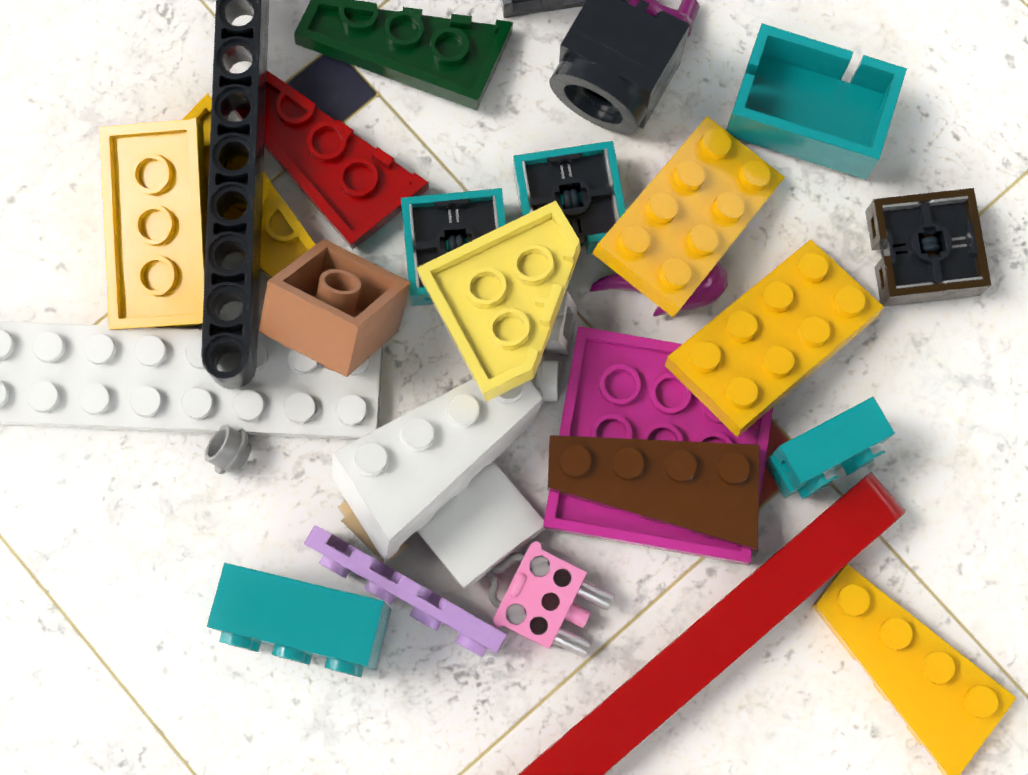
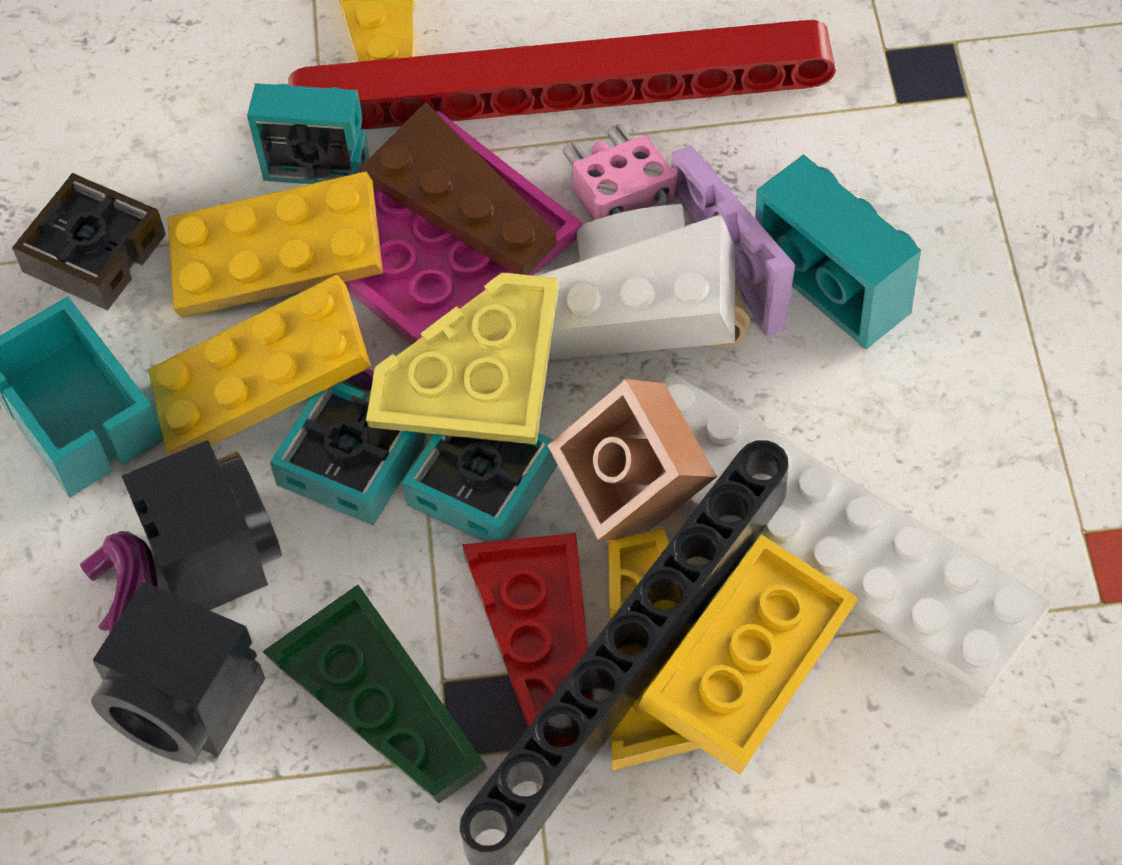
camera: 140 degrees left, 20 degrees down
(228, 449) = (824, 435): light grey plate -> none

